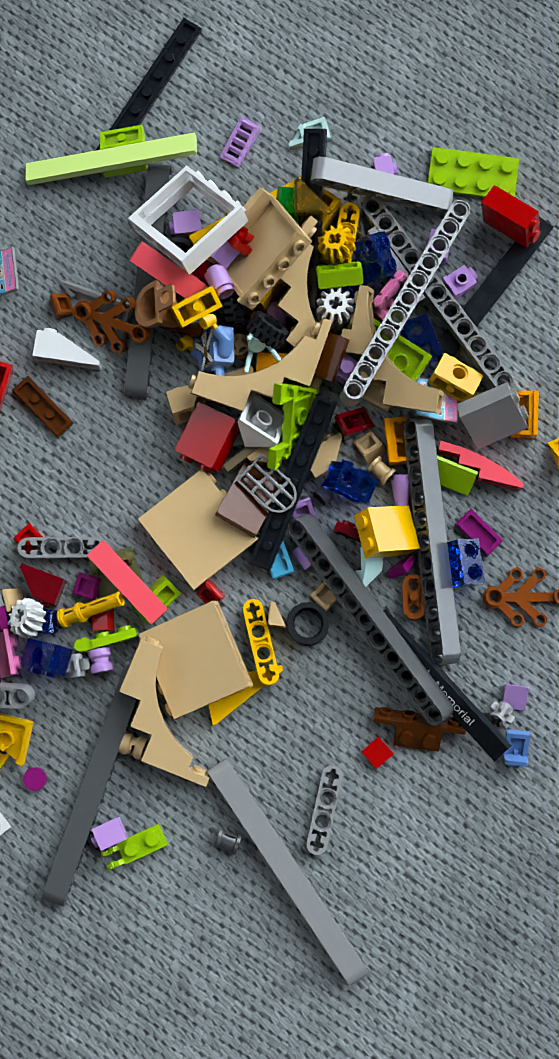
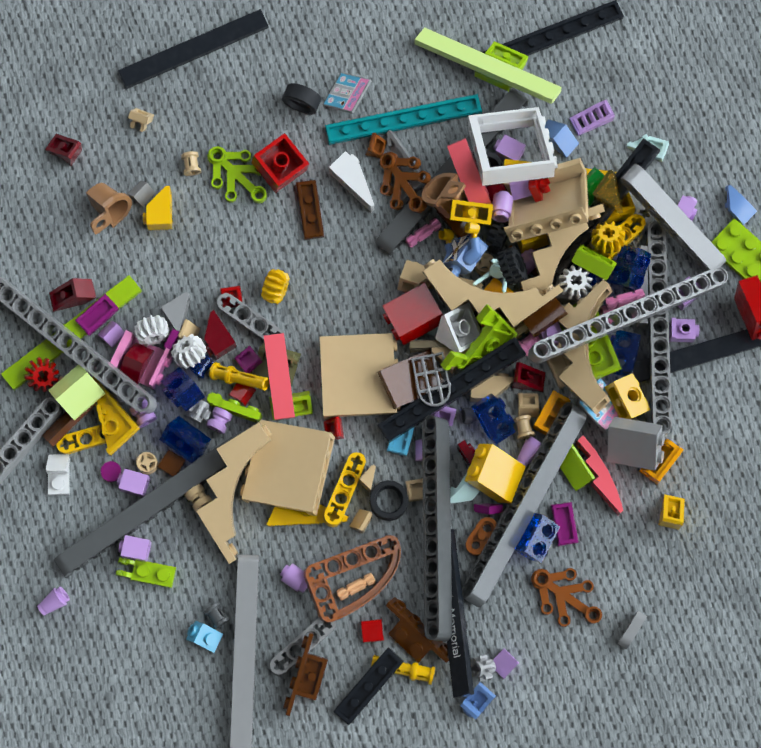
camera: 30 degrees right, 5 degrees down
(31, 709) = (142, 418): none -> lavender wheel
(59, 748) = (146, 459): none -> tan wheel
(62, 501) = (275, 286): none -> yellow gear
(63, 775) = (133, 482): none -> lavender brick
(68, 263) = (403, 119): none -> teal tile
(69, 934) = (54, 600): none -> lavender cone
(82, 701) = (185, 439): none -> clear blue brick
(85, 731) = (171, 463): none -> reddish brown tile
(162, 355) = (423, 232): none -> bright pink axle
(226, 179) = (561, 137): none -> slope
(229, 867) = (204, 636): none -> medium azure bracket
(274, 755) = (294, 578): none -> lavender brick
(295, 659) = (361, 520): none -> tan slope
(311, 714) = (343, 566): none -> dark orange beam
(332, 389) = (528, 342): none -> bright pink bush
(334, 723) = (356, 586): none -> light nougat axle
(351, 836) = (308, 677): none -> reddish brown bracket
(410, 805) = (368, 686): none -> black tile
(428, 132) = (738, 205): none -> medium blue slope
(439, 762) = (414, 671): none -> yellow pin

